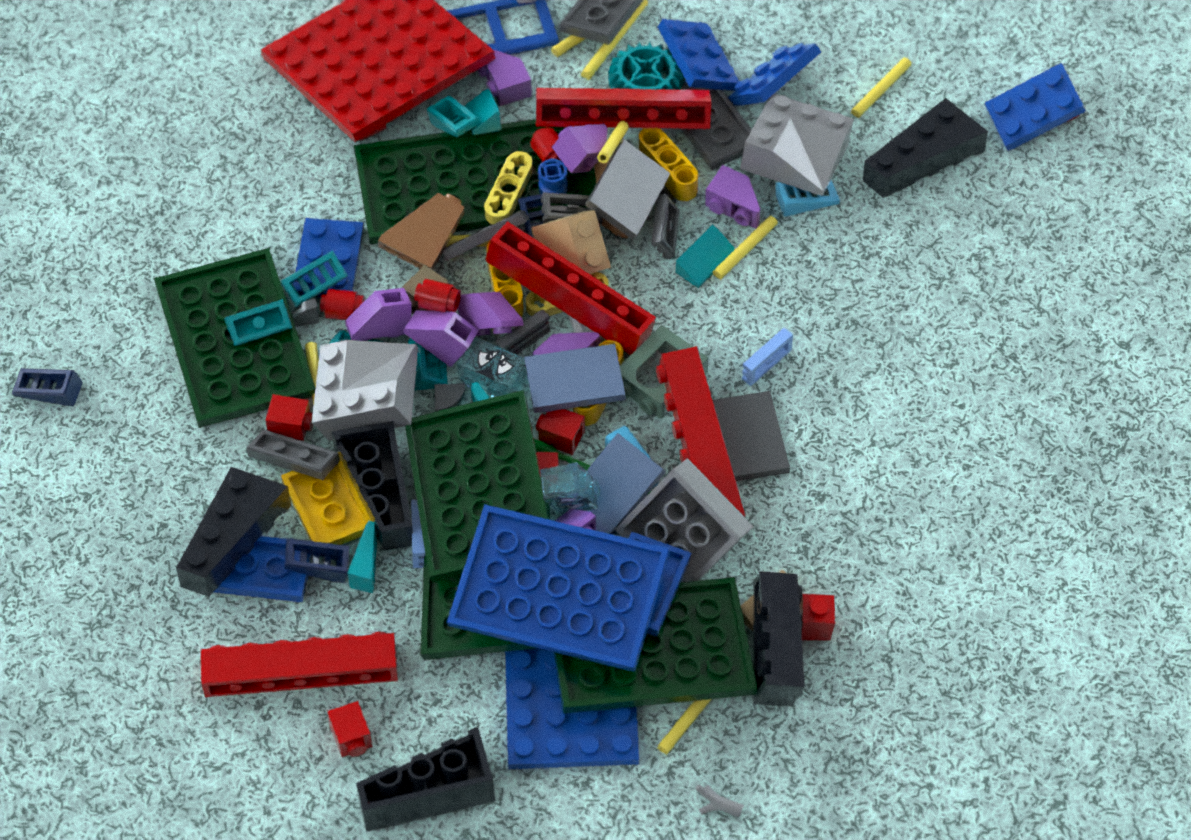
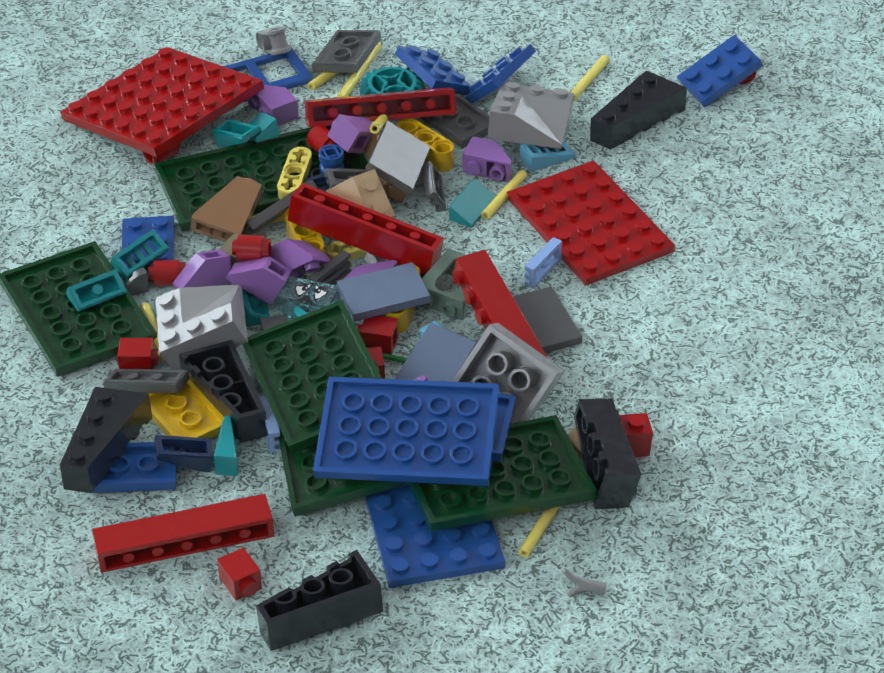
camera: 10 degrees left, 15 degrees down
(569, 488) = (398, 360): clear light blue brick -> none
(835, 303) = (593, 219): none -> red plate

